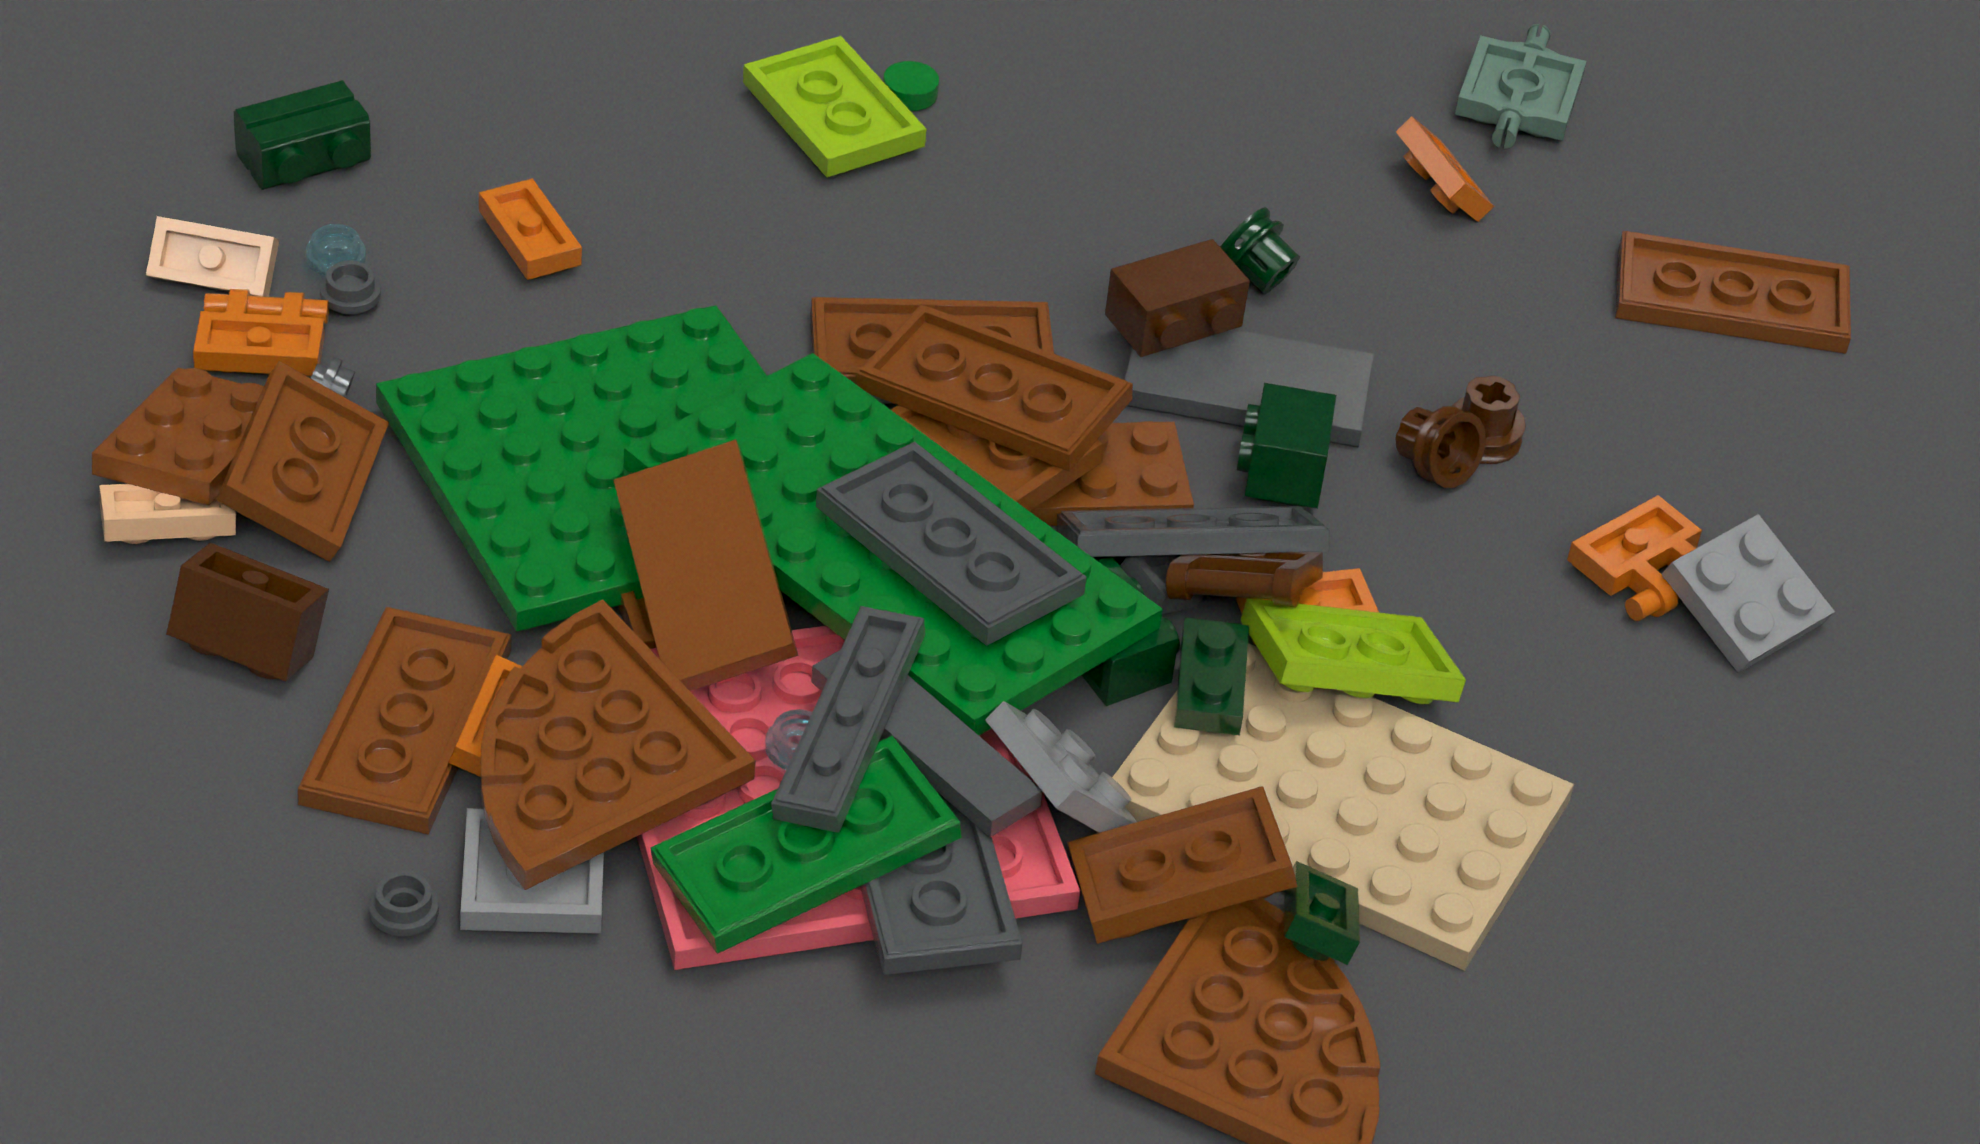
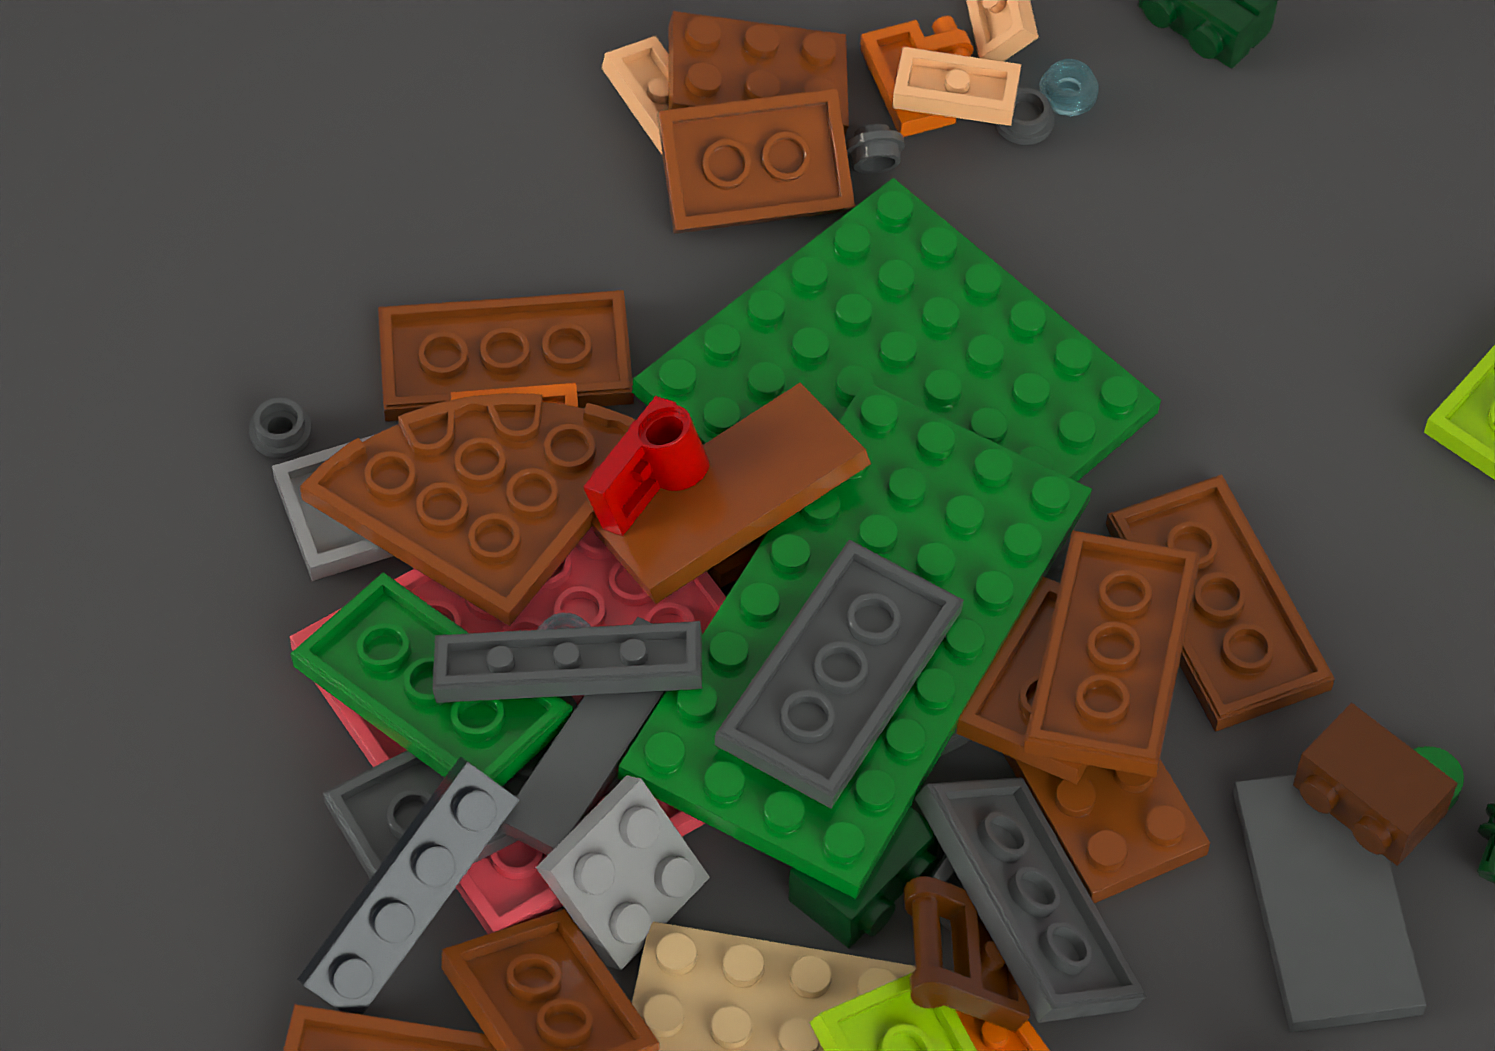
camera: 75 degrees right, 15 degrees up
(247, 612) = (543, 190): reddish brown brick -> none
(313, 297) = (956, 86): none -> light nougat plate
(530, 229) = (1185, 218): orange plate -> none
(649, 587) = (653, 454): none -> red plate
(1038, 935) = (408, 889): none -> plate
(1212, 676) = (821, 966): dark green plate -> none
(1287, 445) = (1213, 953): dark green brick -> none

